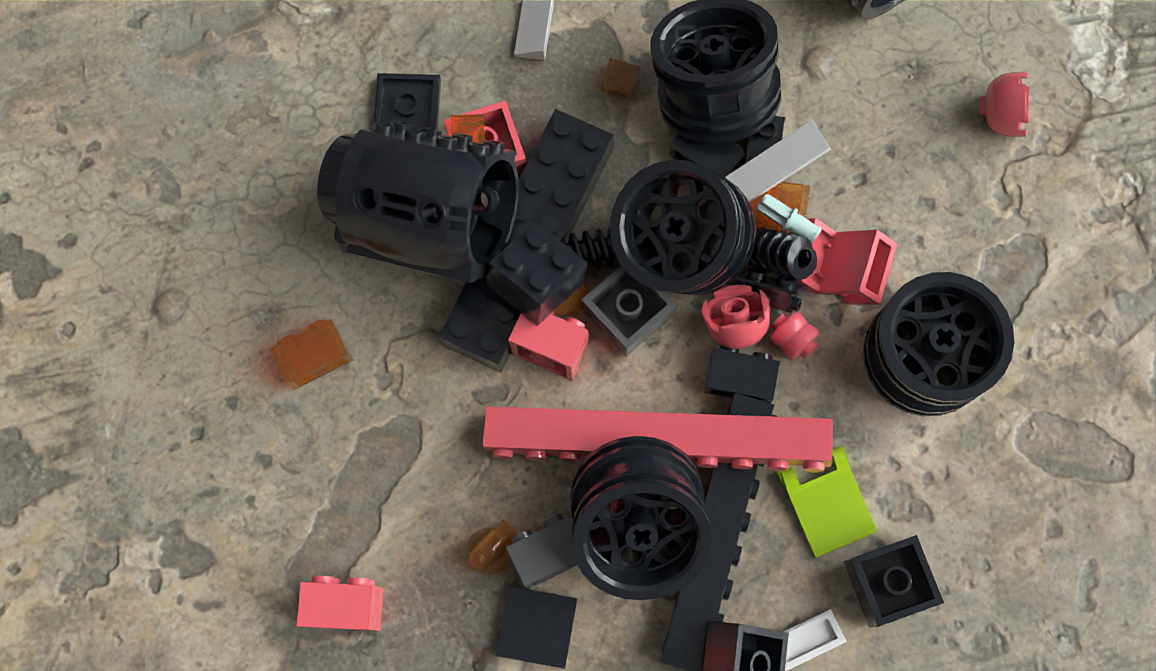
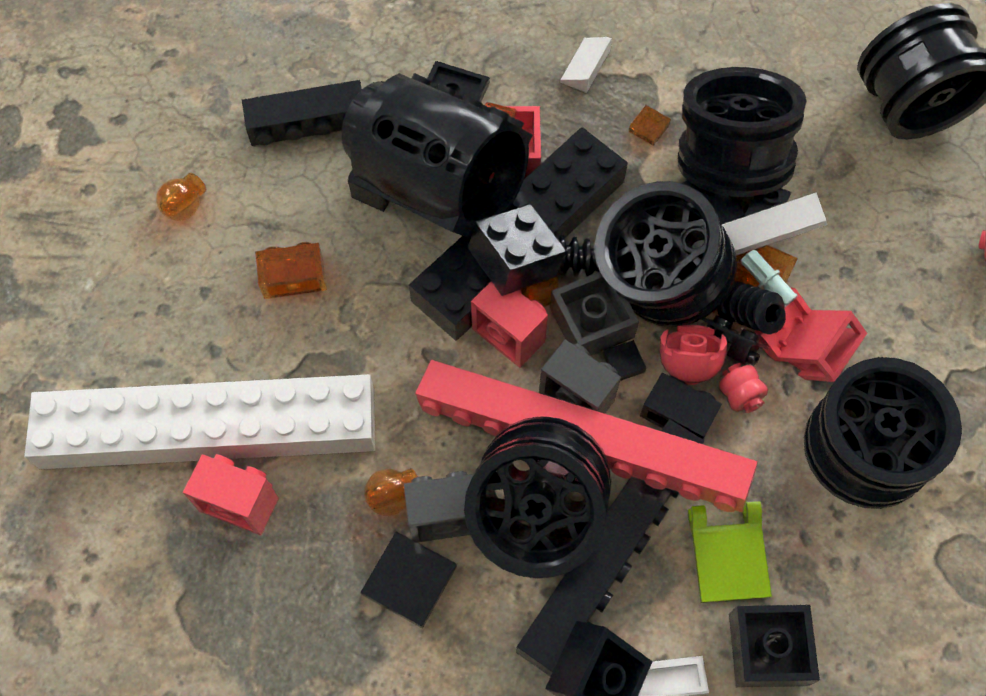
camera: 15 degrees right, 10 degrees down
(168, 310) = (180, 197): none -> clear orange piece
(261, 176) = (298, 112): none -> black brick
(280, 541) = (201, 419): none -> white brick
(637, 384) = (579, 378): none -> dark grey brick
(672, 342) = (625, 359): none -> black tile

